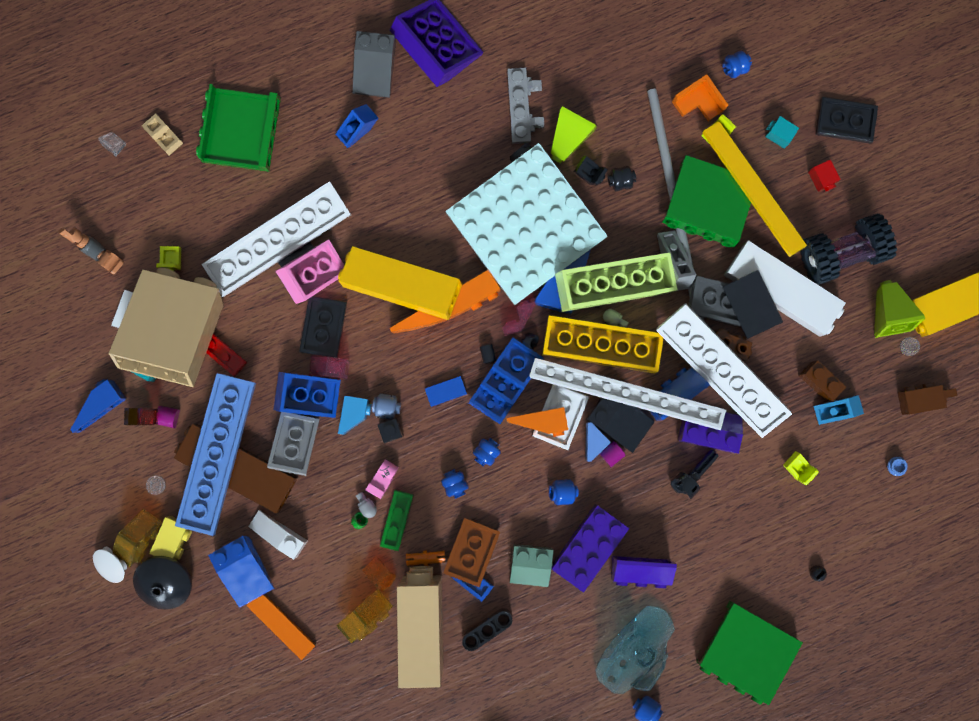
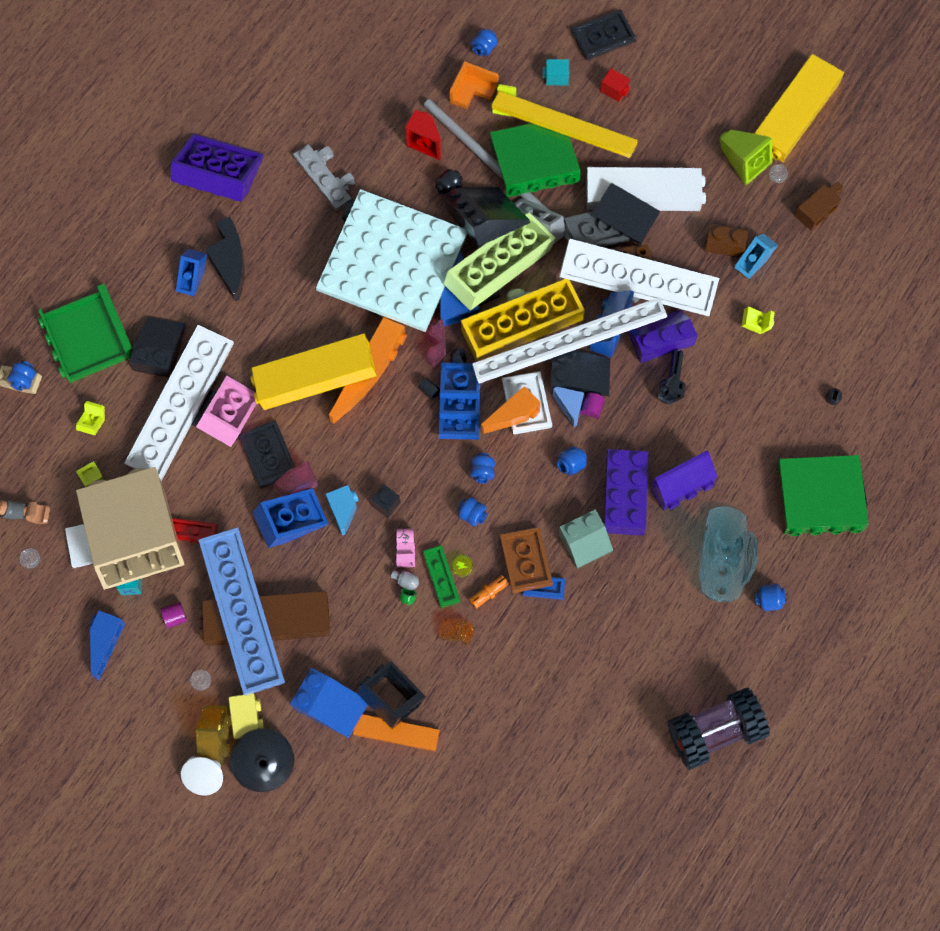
camera: 30 degrees left, 15 degrees down
(83, 297) = (29, 558): none -> clear plate
(140, 416) = (151, 624): clear red leg -> none
(162, 135) = (21, 375): none -> blue piece
(199, 207) = (92, 418): none -> neon yellow bracket
(278, 535) = (341, 653): white slope -> none
(290, 175) = (157, 347): none -> black slope
(293, 443) = (305, 563): light grey plate -> none
(310, 612) = (401, 683): none -> black window
(365, 616) = (466, 672): clear yellow brick -> none
(373, 64) = (174, 215): dark grey slope -> none
(386, 406) = (367, 484): sand blue head -> none
(395, 133) = (228, 257): none -> black slope
(419, 522) = (462, 565): none -> clear neon green tile
(420, 629) = (523, 638): tan brick -> none
(445, 391) = (412, 442): blue tile -> none
(483, 638) = (588, 608): black beam -> none
(569, 134) = (381, 169): lime slope -> none
(590, 171) = (417, 192): black bracket -> none
(627, 120) = (423, 135): none -> red slope
(632, 230) = (484, 212): none -> black slope
(870, 242) = (688, 110): black plate -> none
(897, 466) = (836, 271): medium blue plate -> none

